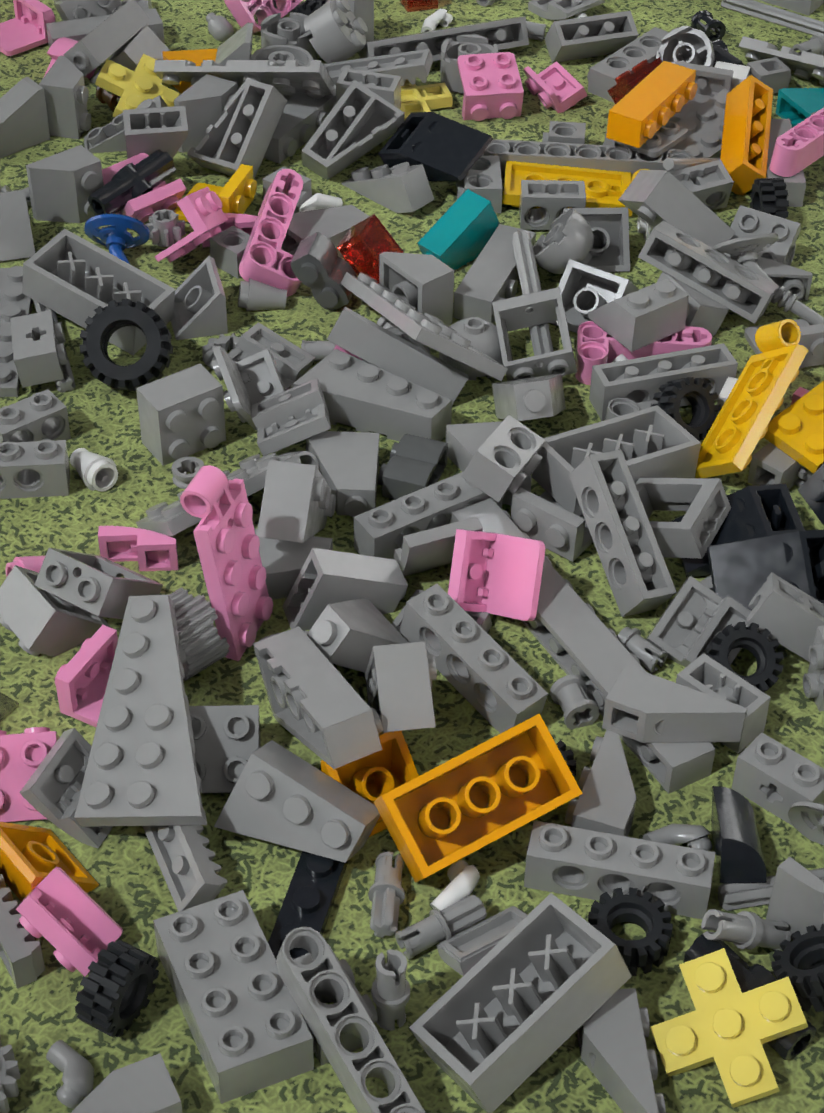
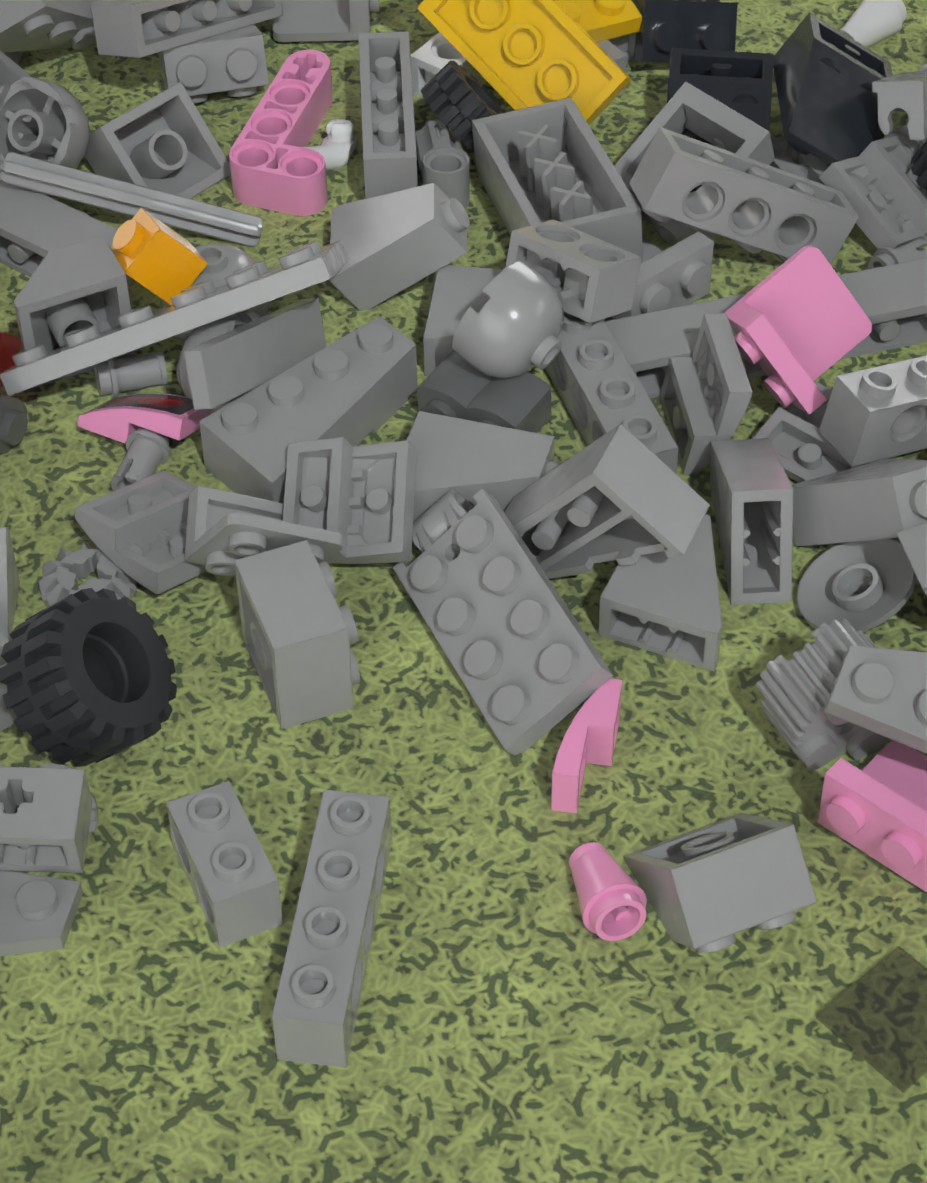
camera: 75 degrees left, 5 degrees up
(92, 582) = (724, 782): light grey window -> none
(95, 470) = (361, 774): white cone -> none
(181, 467) = (409, 660): light grey bush -> none
(229, 556) = (777, 559): bright pink hinge -> none
(443, 439) = (514, 326): none -> light grey cylinder
(454, 297) = (156, 256): none -> light orange brick
(544, 308) = (257, 175): light grey window -> none
(644, 315) = (258, 88): light grey slope -> none

